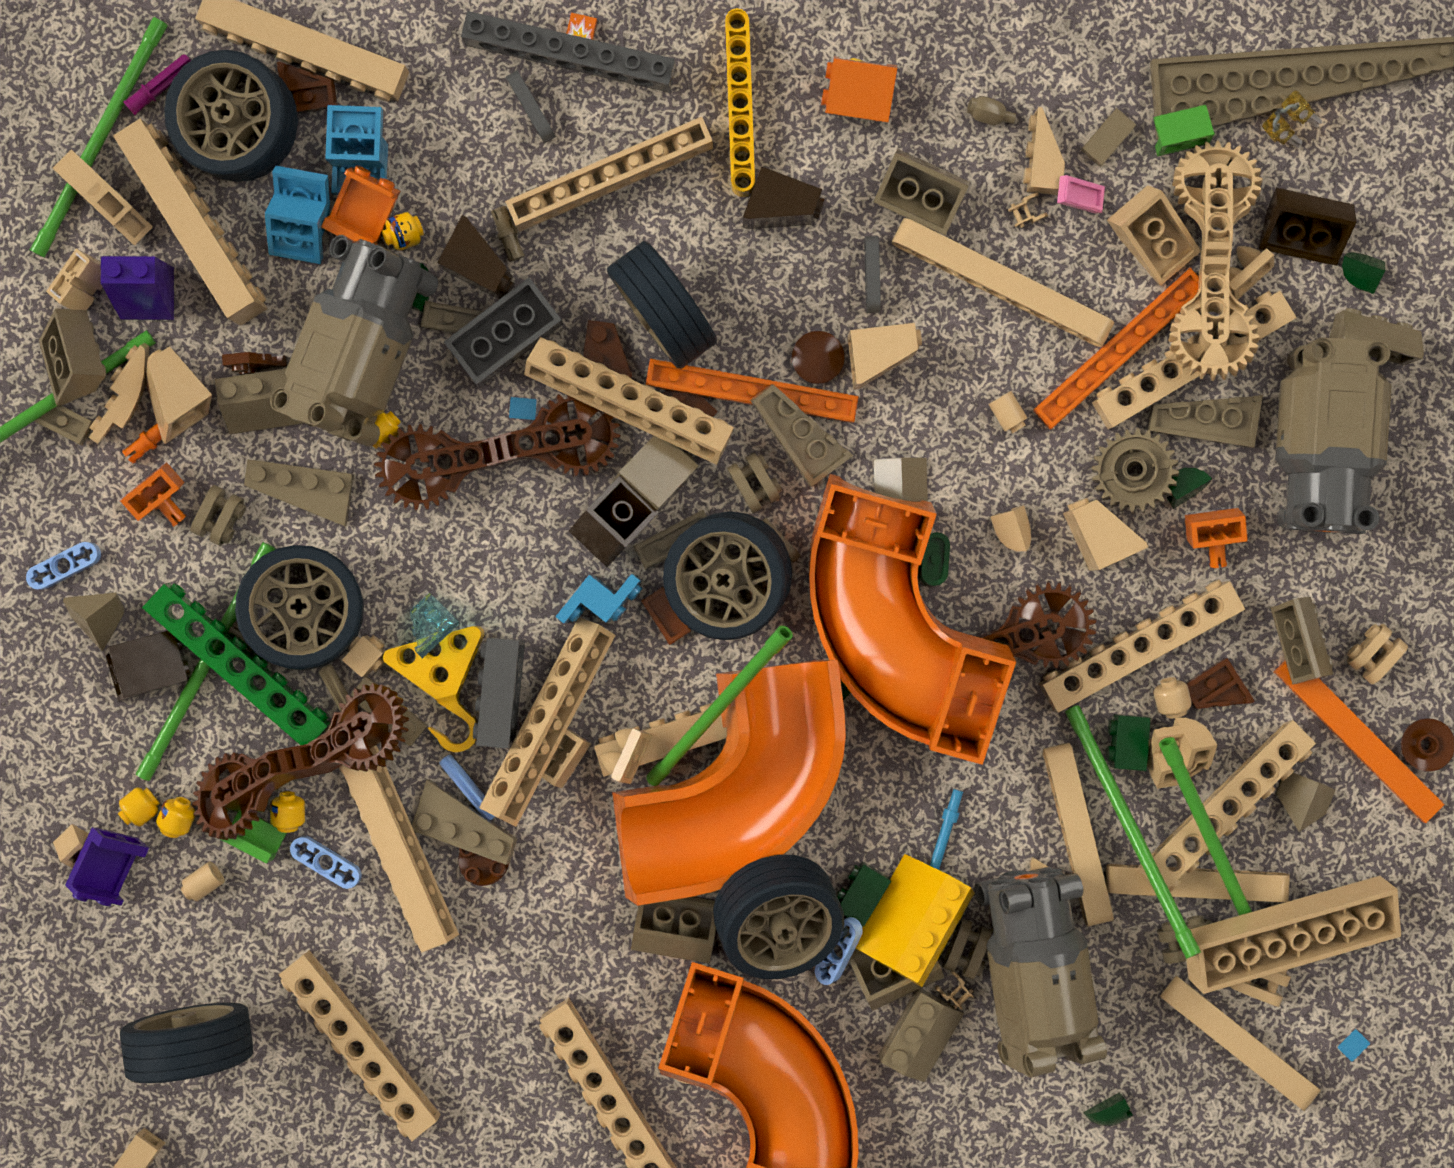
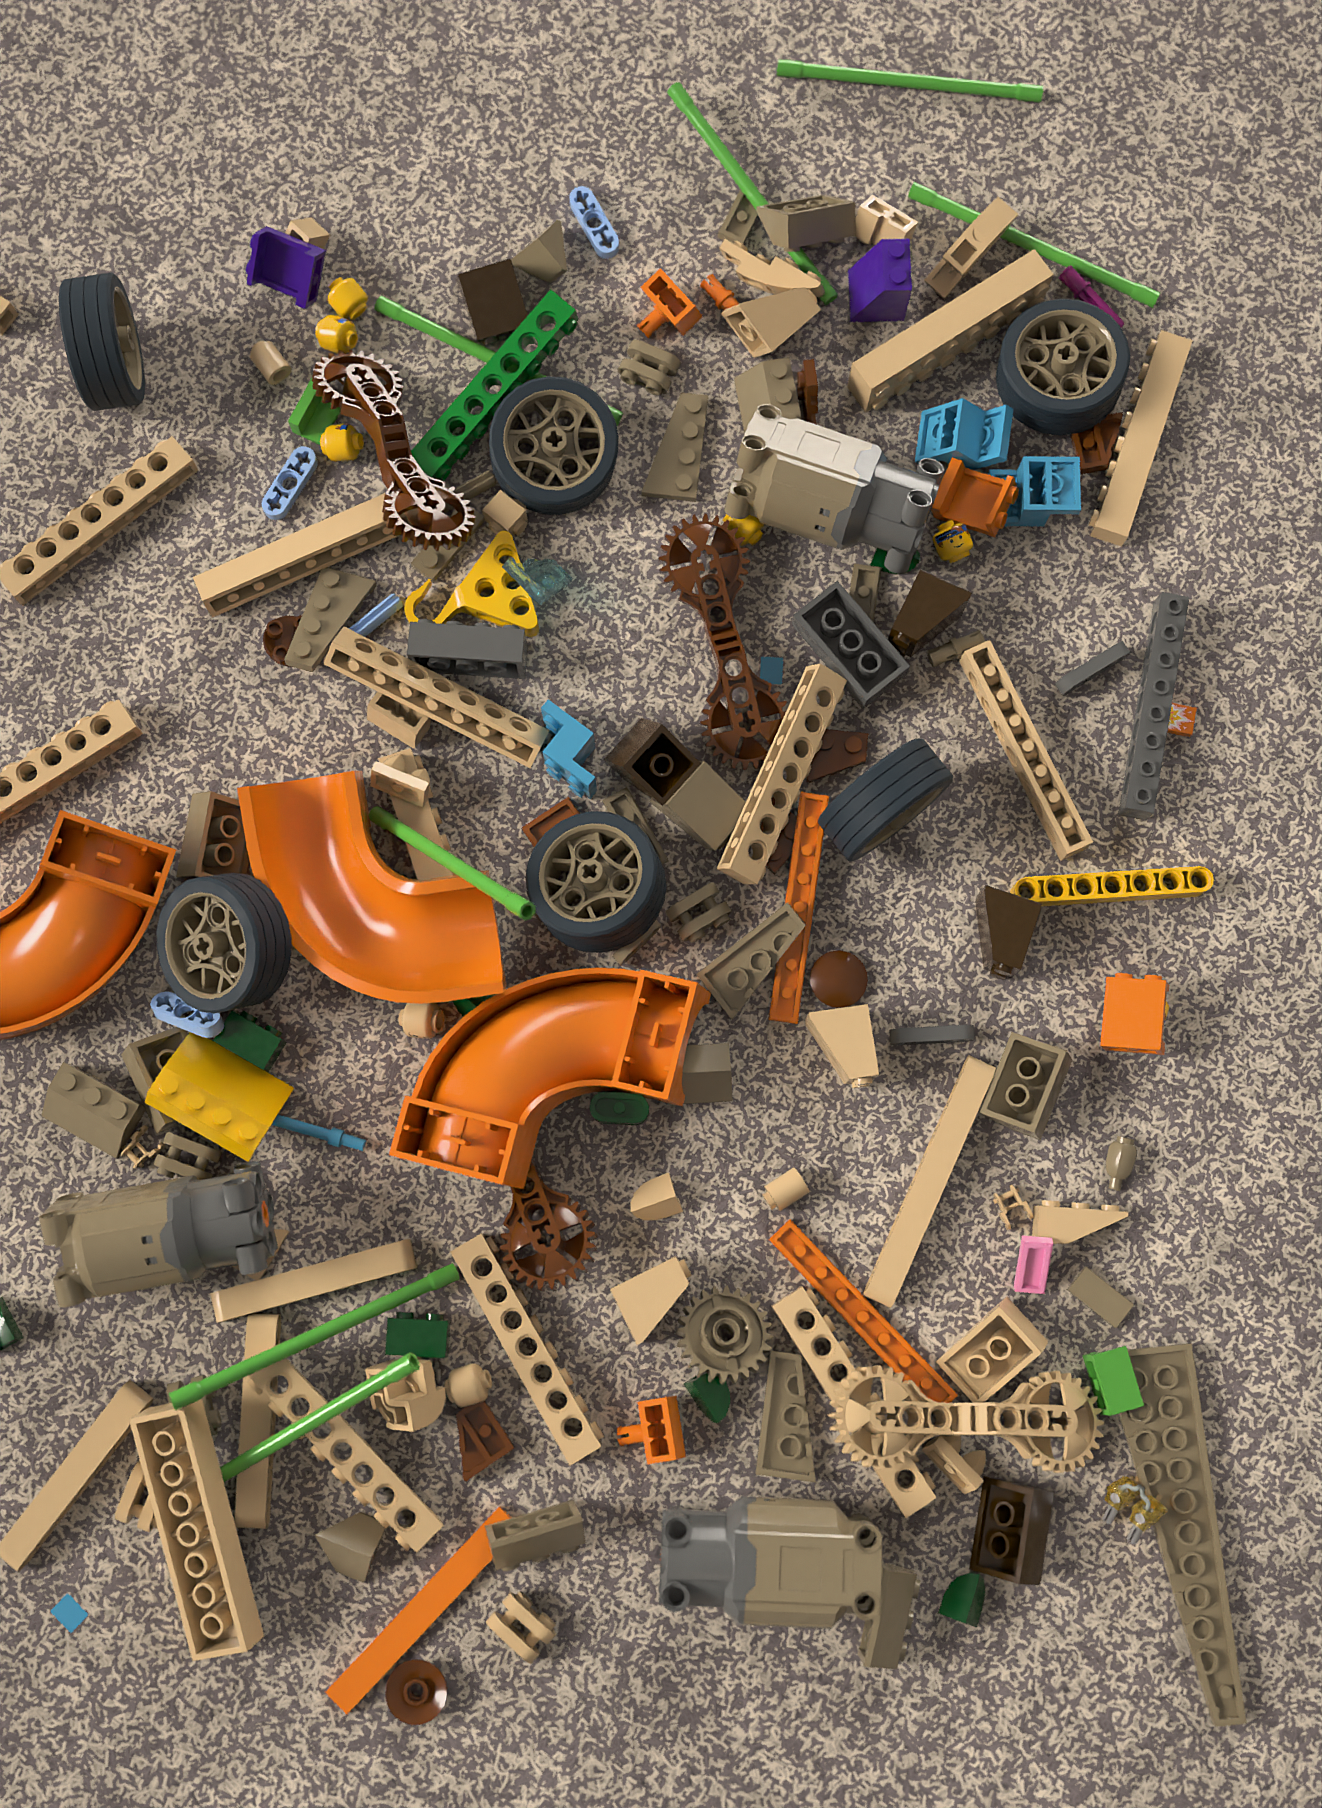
camera: 90 degrees right, 10 degrees down
(854, 737) = (421, 1020): none -> tan head

